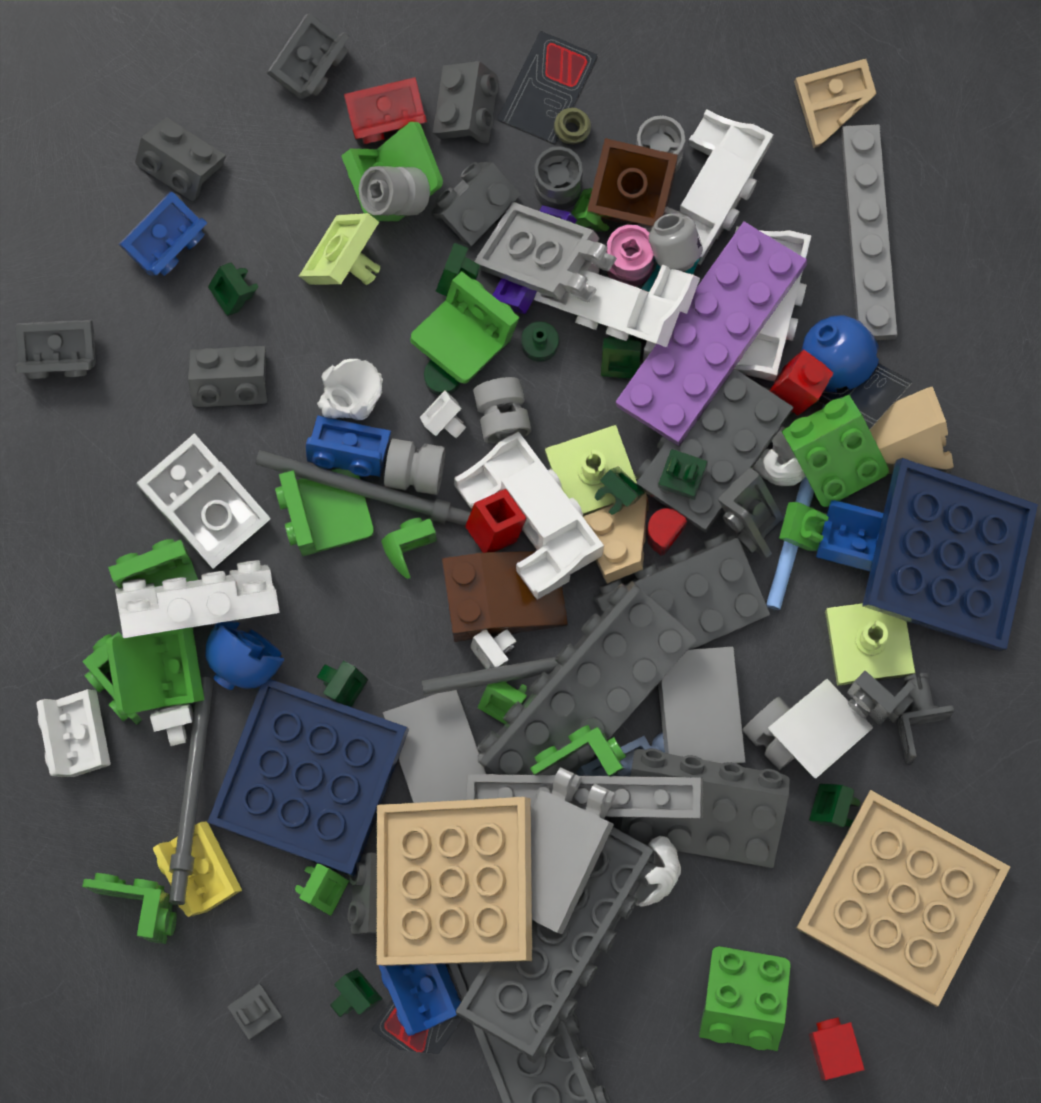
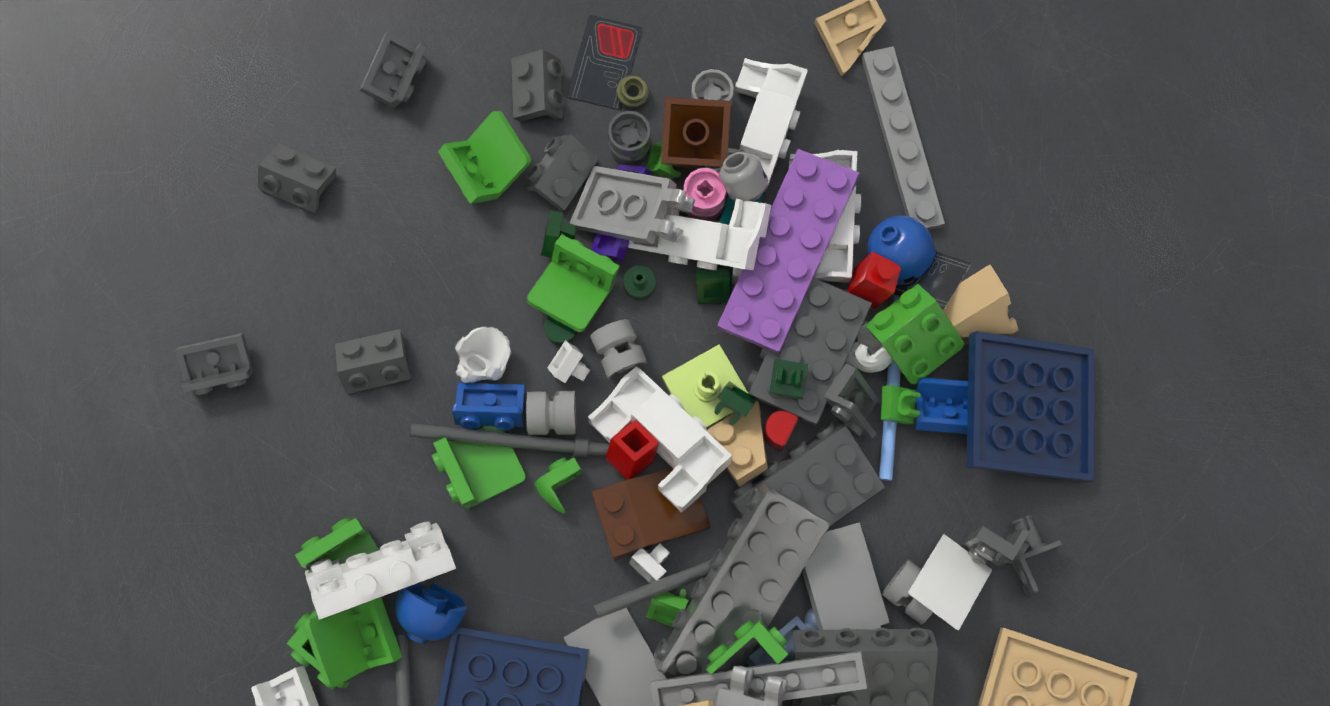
camera: 15 degrees left, 0 degrees up
(163, 235) = (293, 247): blue bracket -> none
(173, 720) = (377, 680): white tile -> none
(203, 501) = (370, 477): white slope -> none
(230, 288) = (361, 284): dark green tile -> none
(341, 252) = (453, 235): yellowish green tile -> none
(342, 684) = (523, 619): dark green tile -> none
(384, 109) = (467, 104): red bracket -> none
(394, 191) = (489, 174): light grey wheel -> none
(832, 805) = (973, 647): dark green tile -> none
(868, 642) = (973, 498): yellowish green tile -> none

